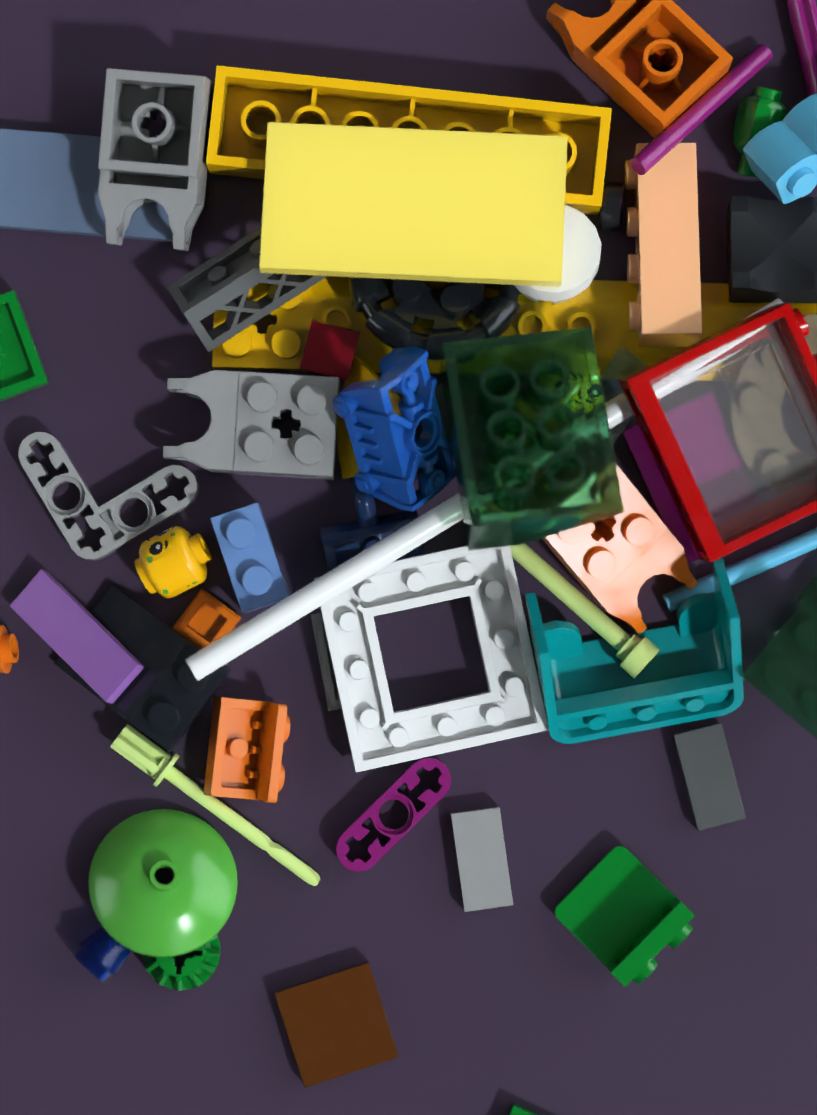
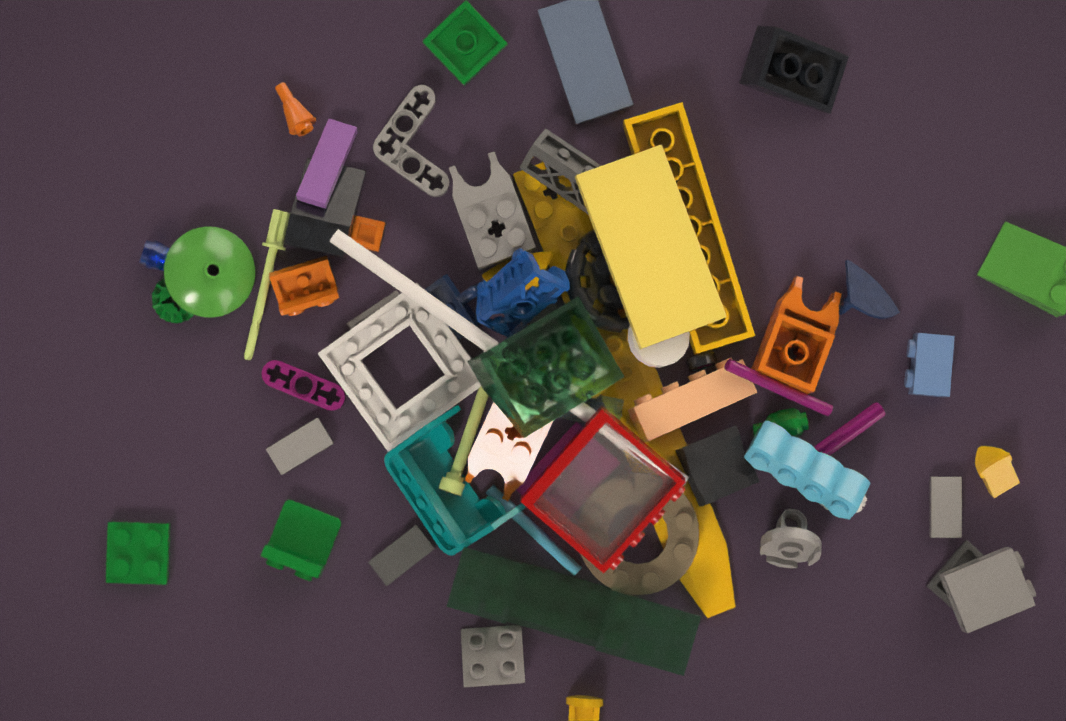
camera: 65 degrees right, 0 degrees up
(149, 168) = (607, 86): light grey brick -> none
(172, 562) = (392, 199): yellow head -> none
(250, 557) = (413, 242): medium blue brick -> none
(329, 349) = (550, 235): dark red tile -> none
(336, 1024) = (171, 404): reddish brown tile -> none

